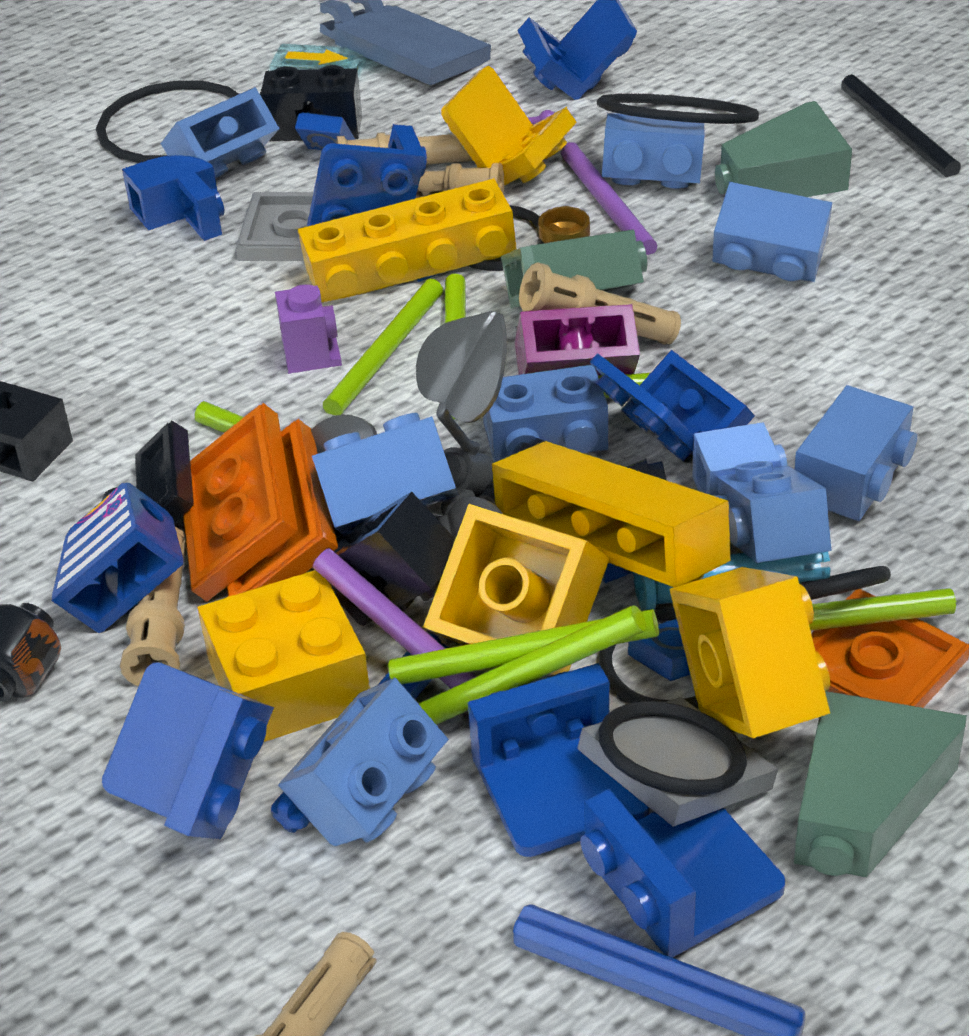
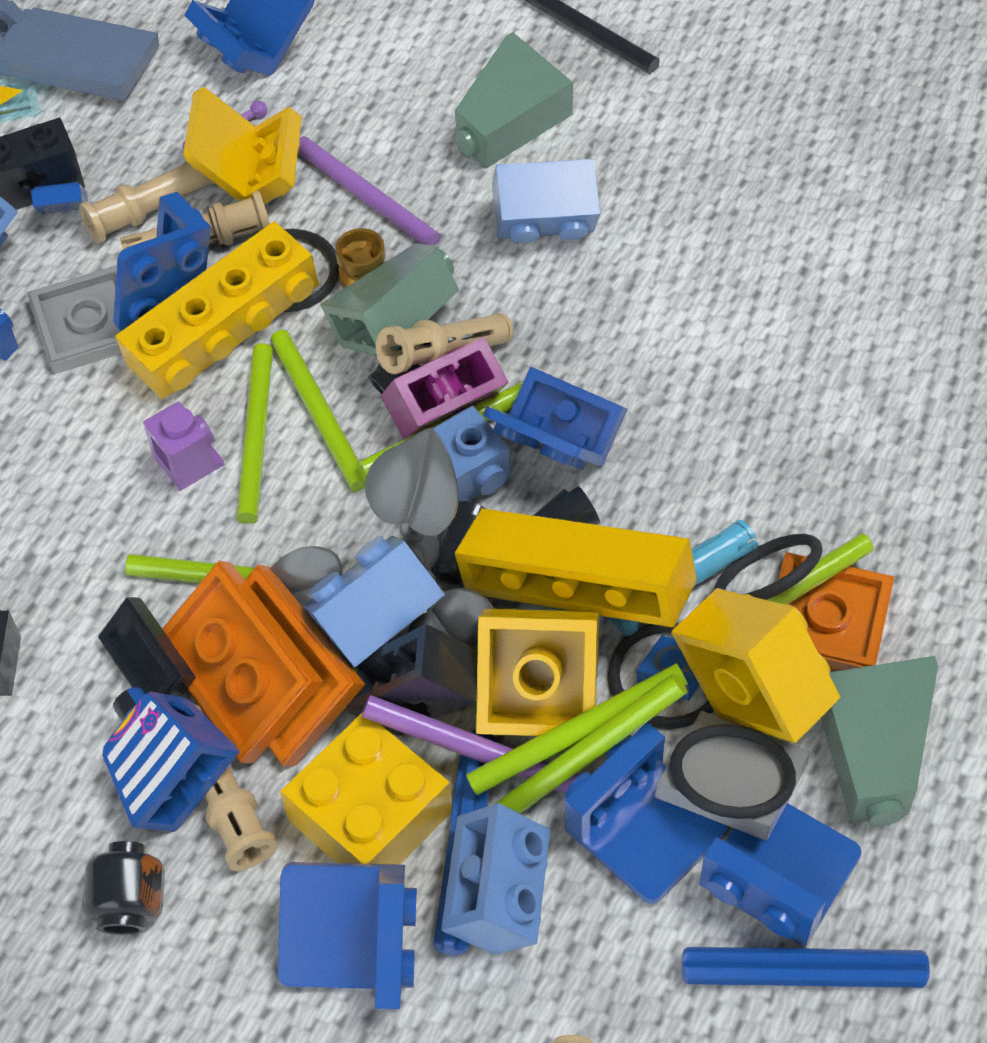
camera: 25 degrees left, 15 degrees up
(613, 102) = (393, 98): black piece -> none
(652, 151) = (388, 127): medium blue brick -> none
(723, 449) = (637, 467): light blue brick -> none
(775, 512) = (699, 506): medium blue brick -> none
(857, 450) = (727, 421): medium blue brick -> none

